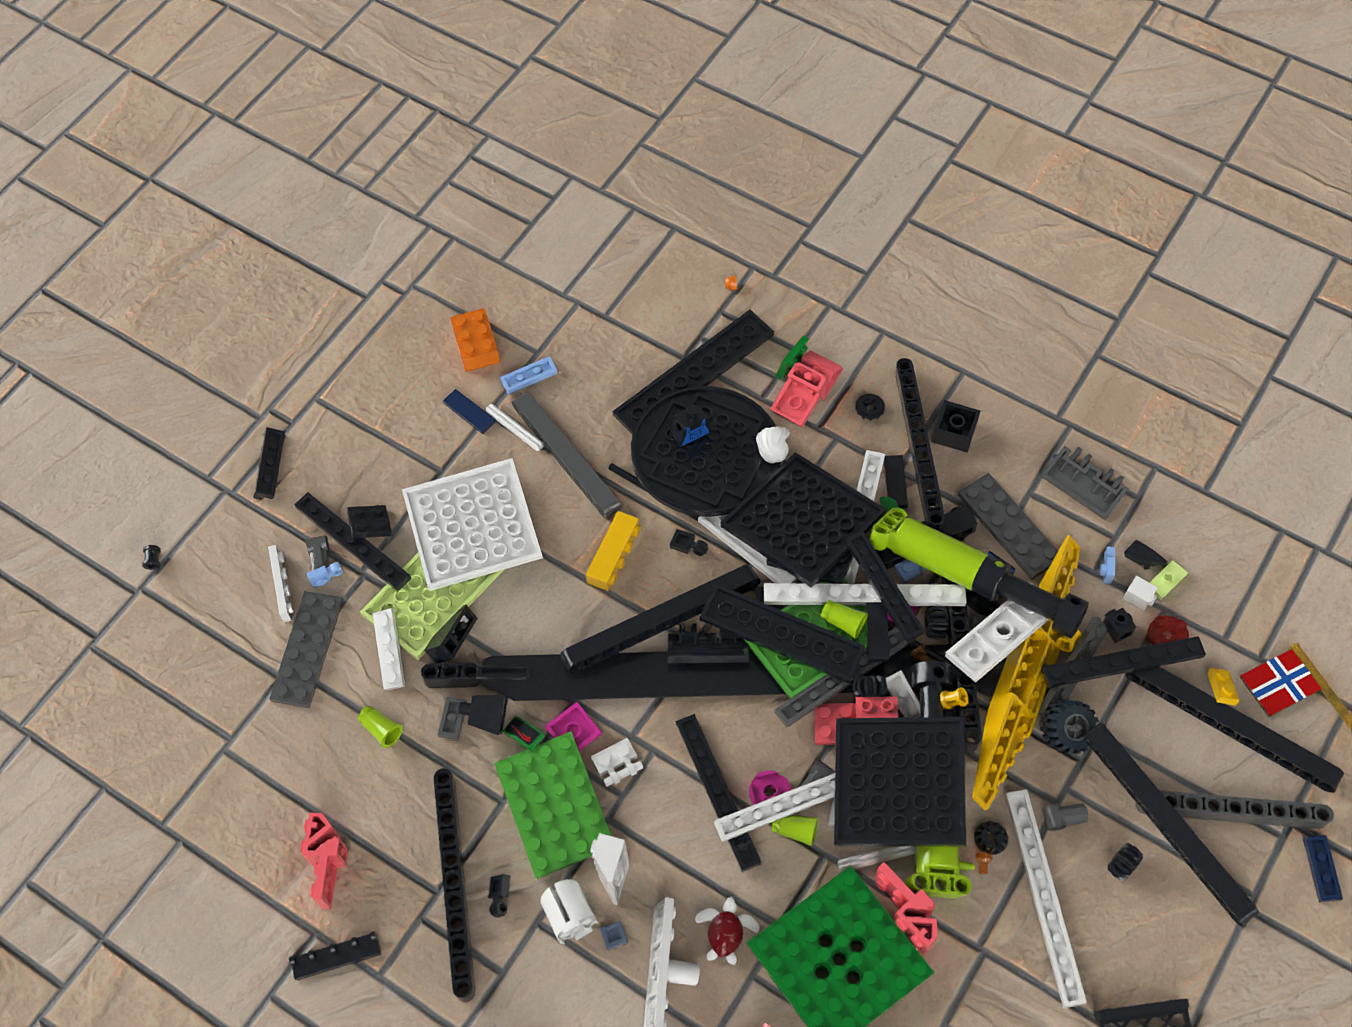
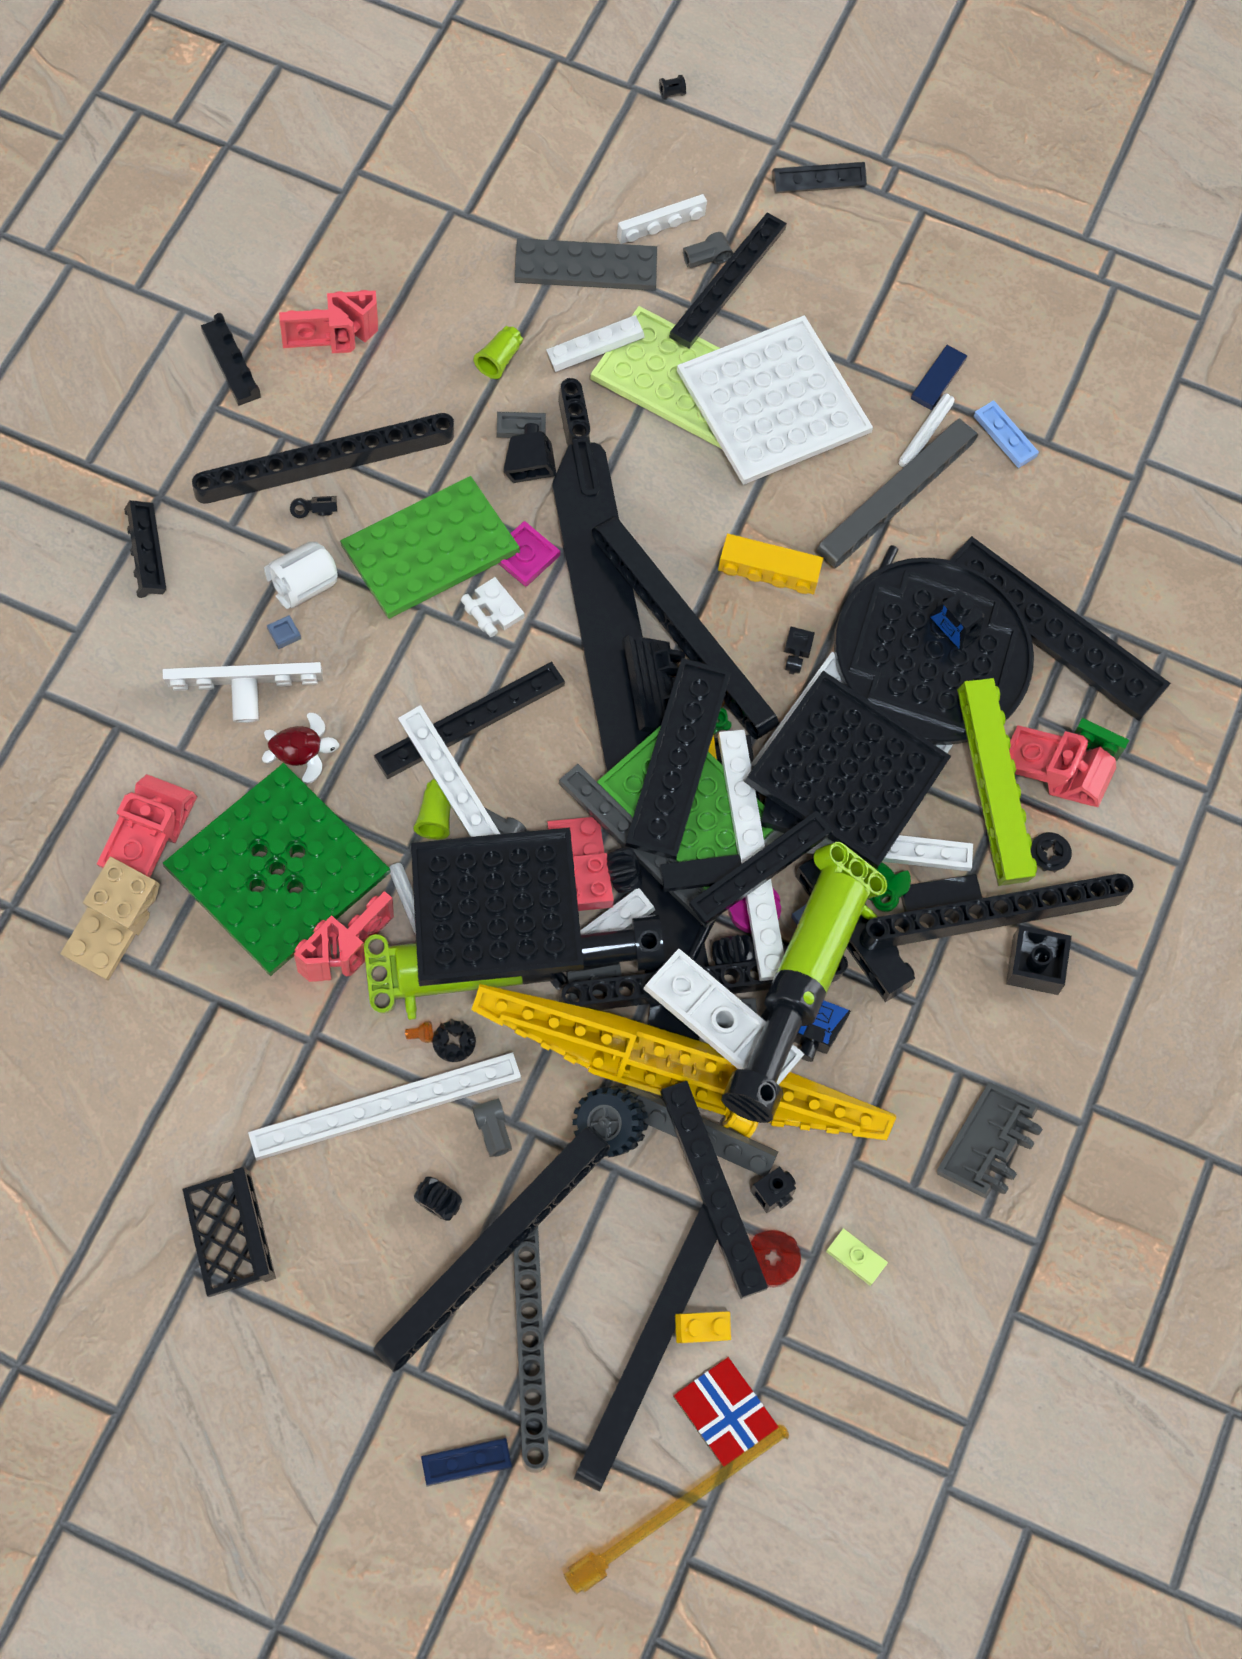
camera: 70 degrees right, 5 degrees up
(322, 575) = (679, 259): light blue plate -> none
(369, 521) = (757, 292): black plate -> none
(451, 636) = (624, 405): black slope -> none
(475, 339) = (1043, 363): orange brick -> none
(523, 733) = (511, 499): slope -> none
(611, 863) = (347, 600): white slope -> none
(731, 283) = (1210, 658): orange hinge -> none
(763, 781) = (487, 767): dark pink plate -> none
(772, 444) = (949, 716): white hair -> none
(822, 426) = (997, 782): none -> lime brick
(845, 618) = (710, 828): lime plant -> none
(919, 653) = (687, 935): clear orange piece -> none
(954, 698) = (618, 968): yellow bush -> none
(1009, 525) = (903, 1043): dark grey plate -> none
(1107, 569) = (858, 1174): light blue plate -> none
(1141, 593) = (826, 1218): white brick -> none
(1144, 555) = (887, 1223): black slope -> none

